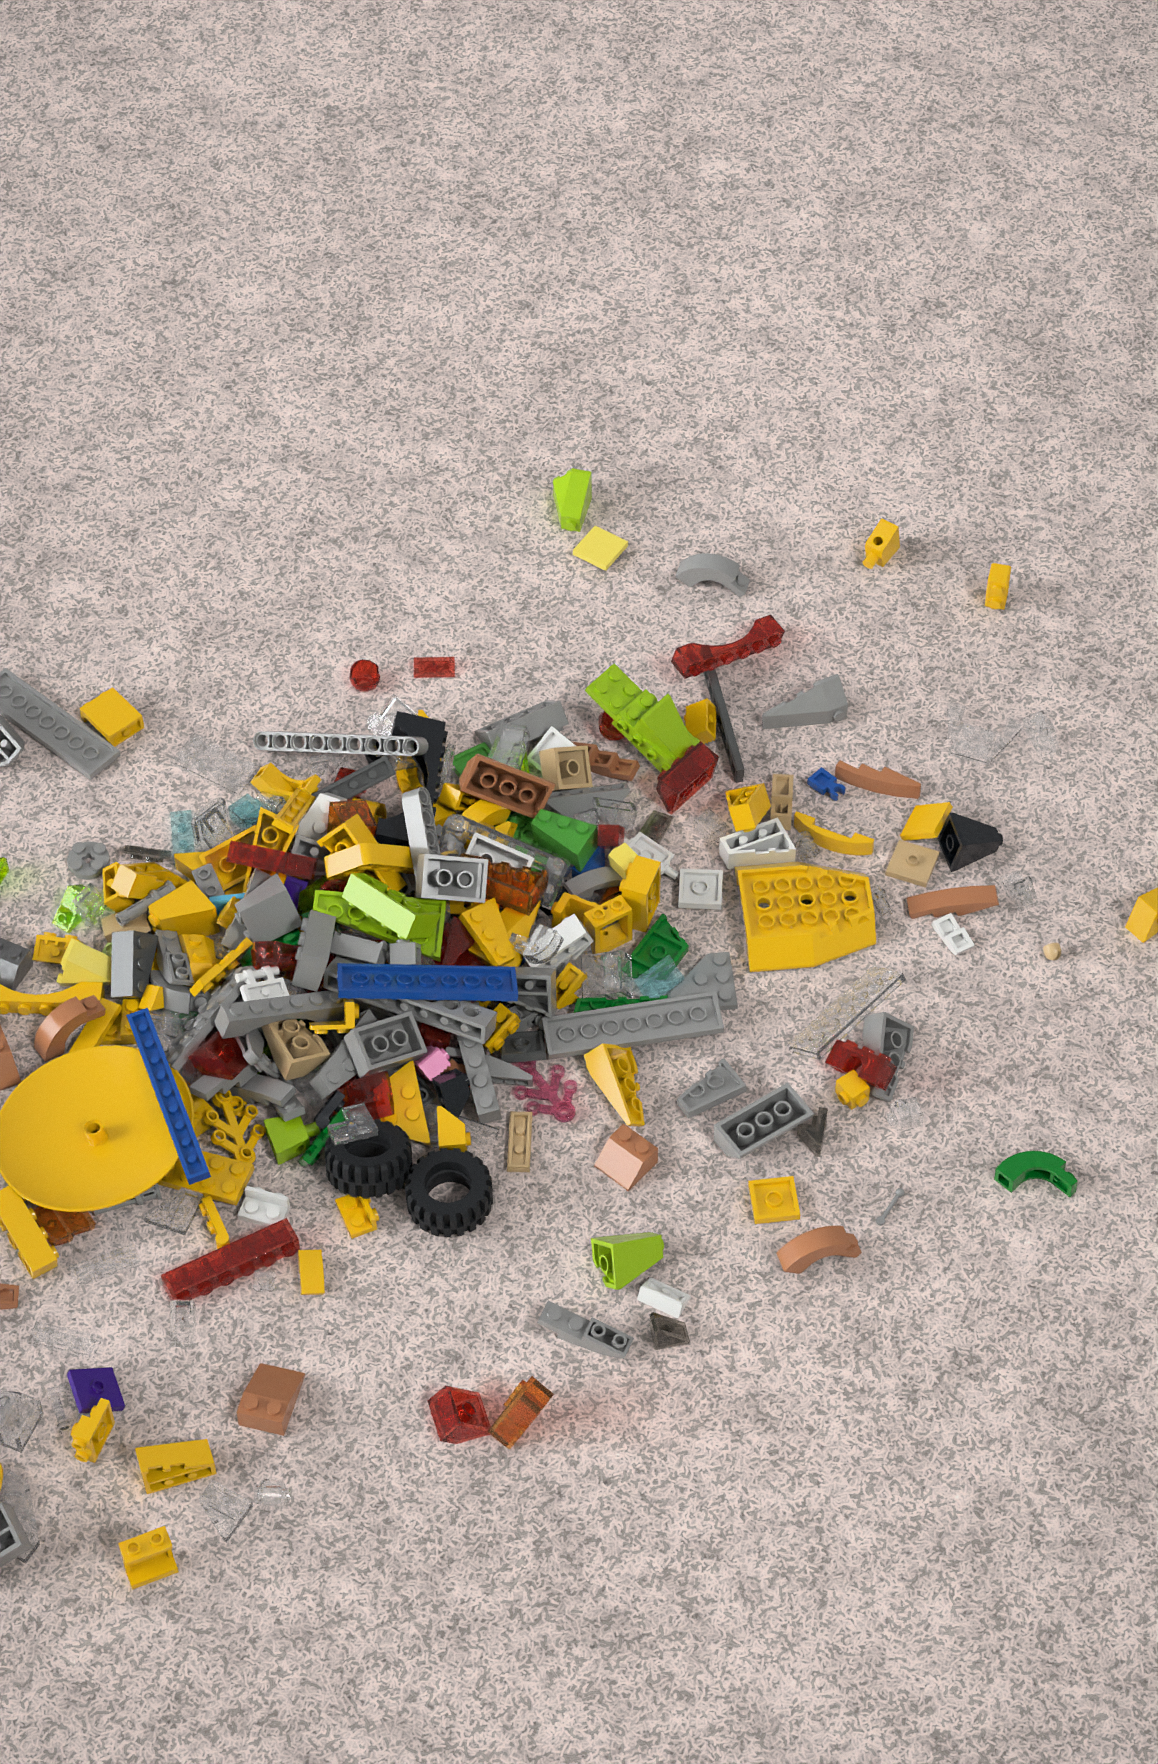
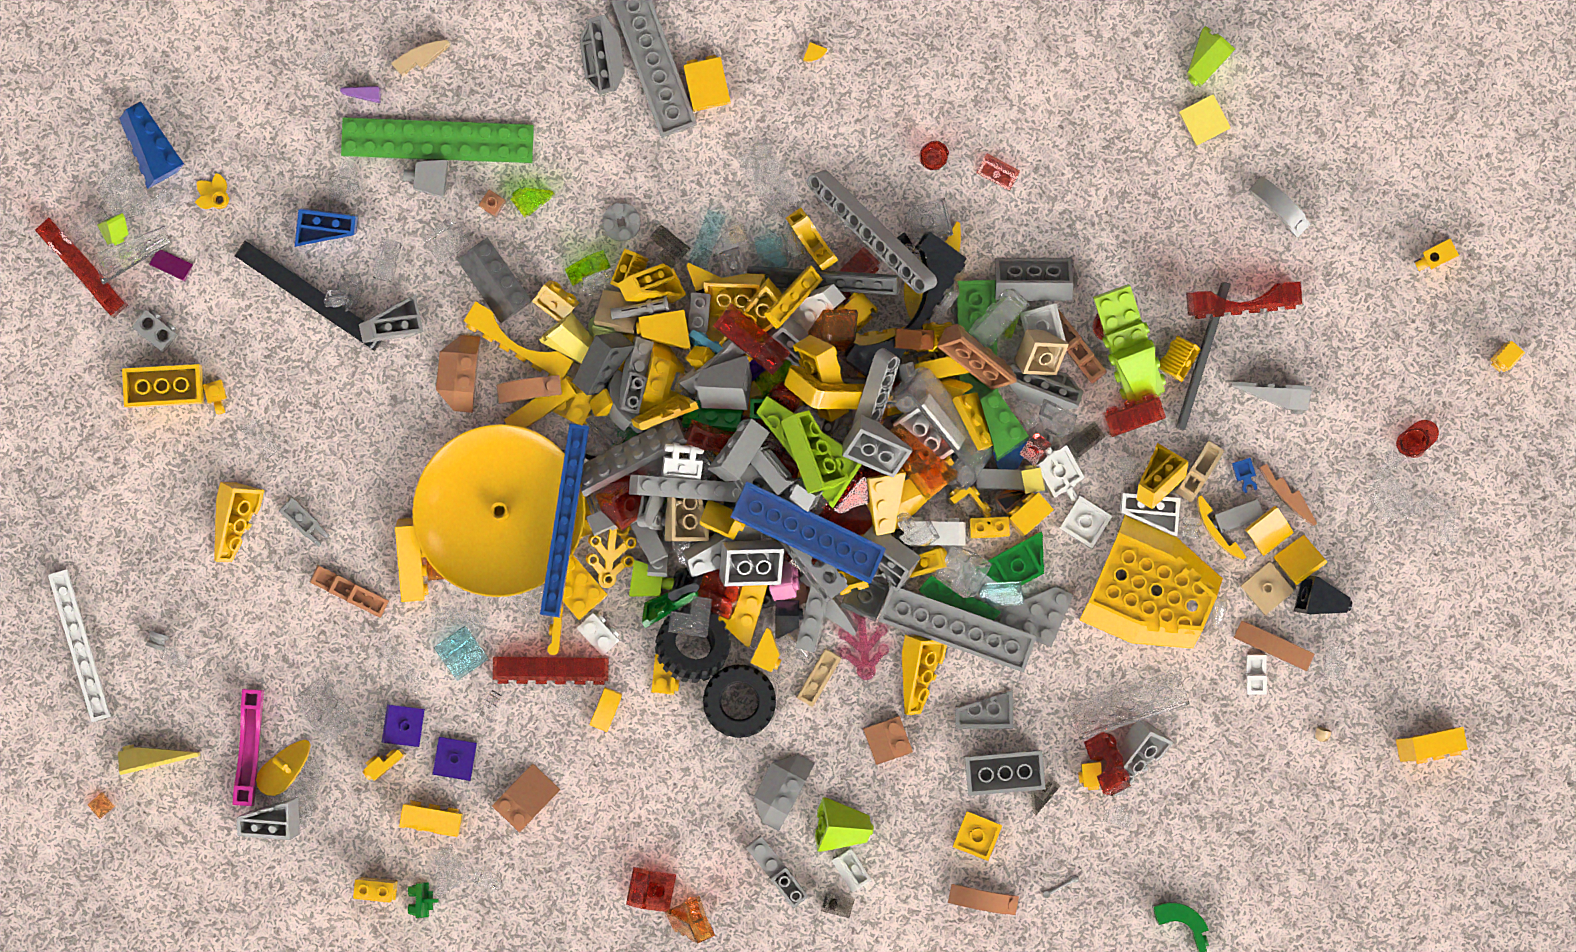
camera: 25 degrees right, 35 degrees up
(124, 1295) = (461, 653): none -> clear light blue slope
(171, 1399) = (454, 758): none -> dark purple plate
(202, 655) = (814, 52): none -> yellow tile
(203, 1544) = (424, 900): none -> green hips
(441, 794) = (914, 339): none -> dark orange slope
(535, 838) = (974, 419): none -> yellow wing
(543, 1258) = (781, 788): none -> light grey wedge
(845, 813) = (1237, 516): none -> light grey window
(881, 812) = (1269, 530): none -> yellow slope
(965, 684) = (1417, 438): none -> clear red piece

